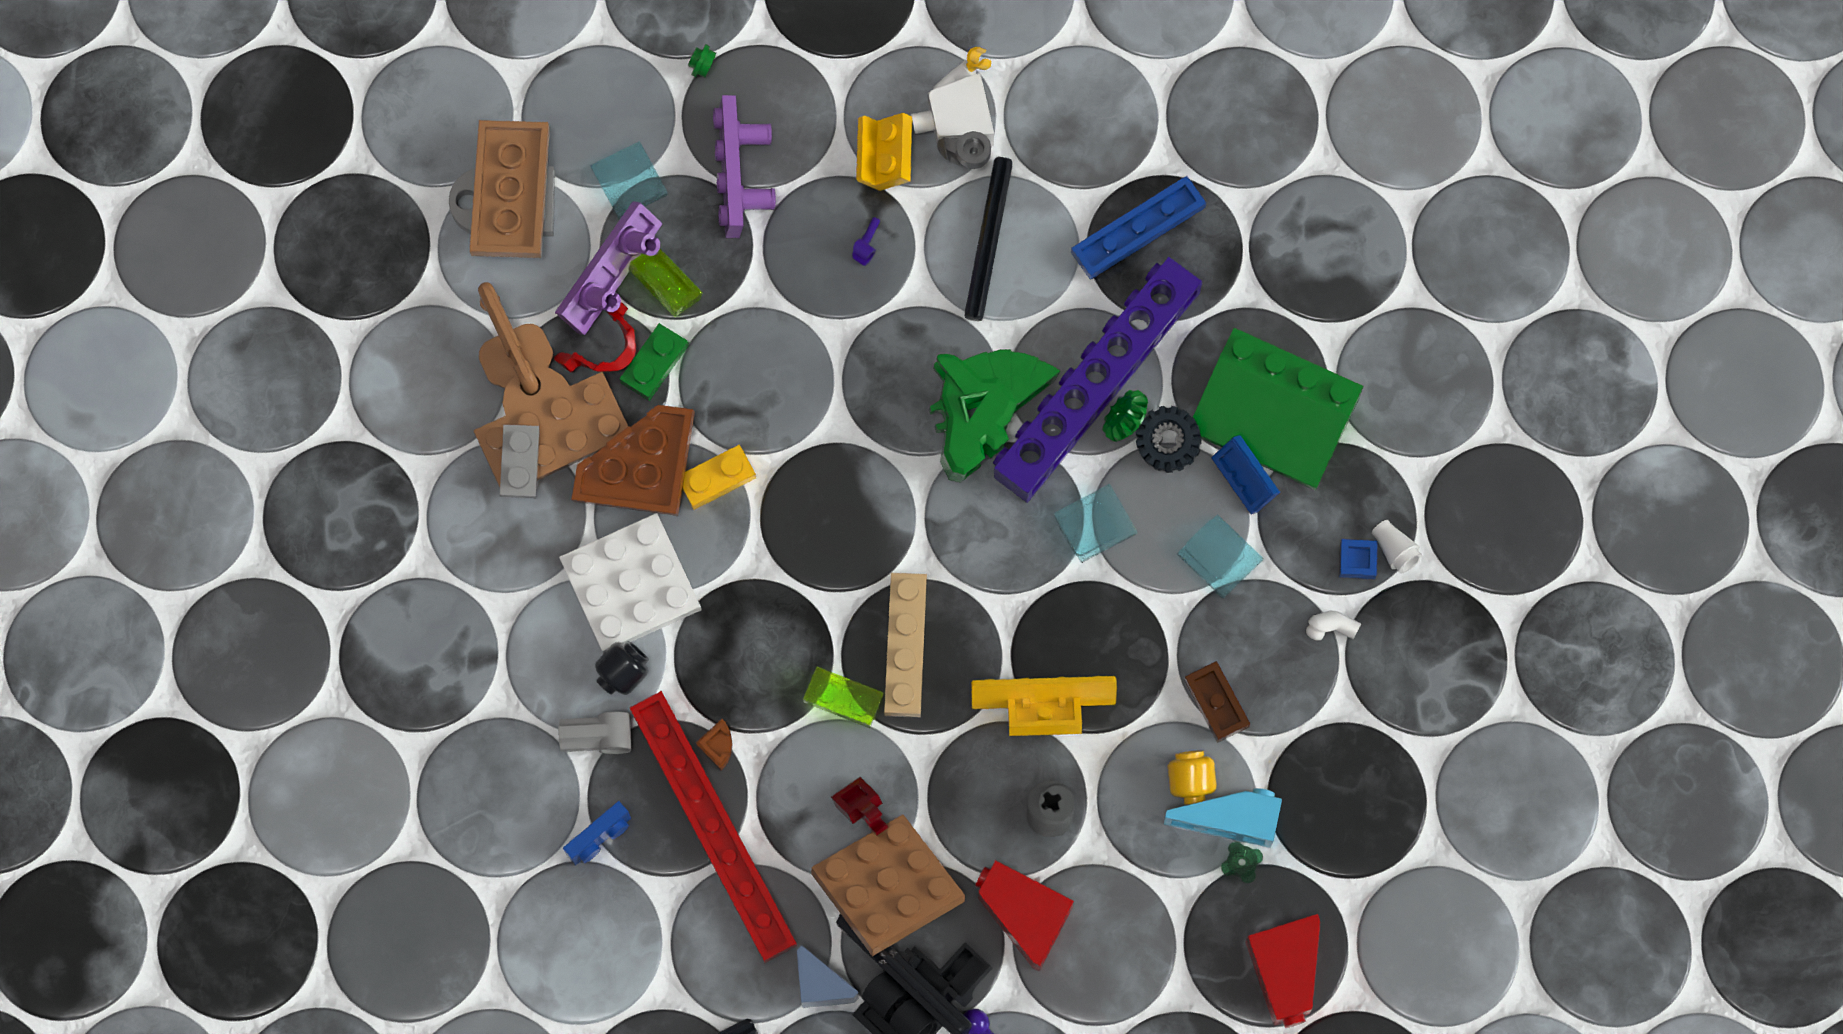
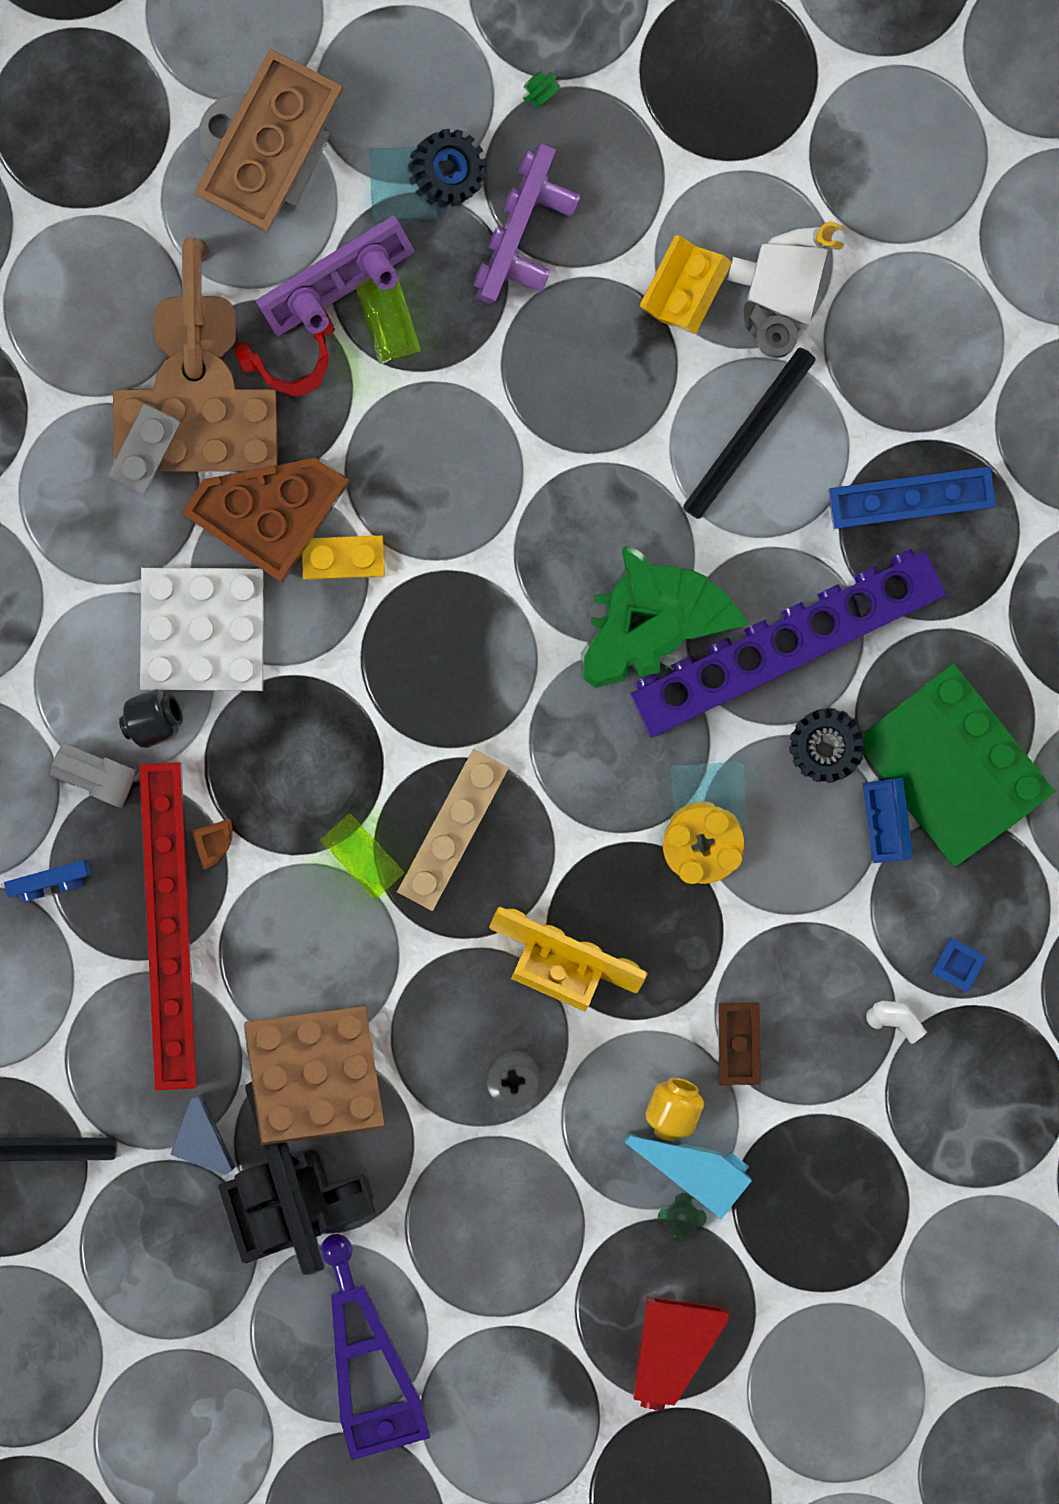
camera: 20 degrees right, 15 degrees up
(651, 163) = (435, 151): none -> black bush
(654, 362) = (336, 401): green plate -> none
(859, 802) = (325, 975): dark red plate -> none
(862, 250) = (610, 382): dark purple hand -> none
(1024, 910) = (439, 1164): red slope -> none
(1125, 415) = (808, 696): green gear -> none
(1130, 559) = (682, 833): none -> yellow plate
(1220, 556) = (819, 890): clear light blue piece -> none
(1397, 547) = (1004, 971): white cone -> none

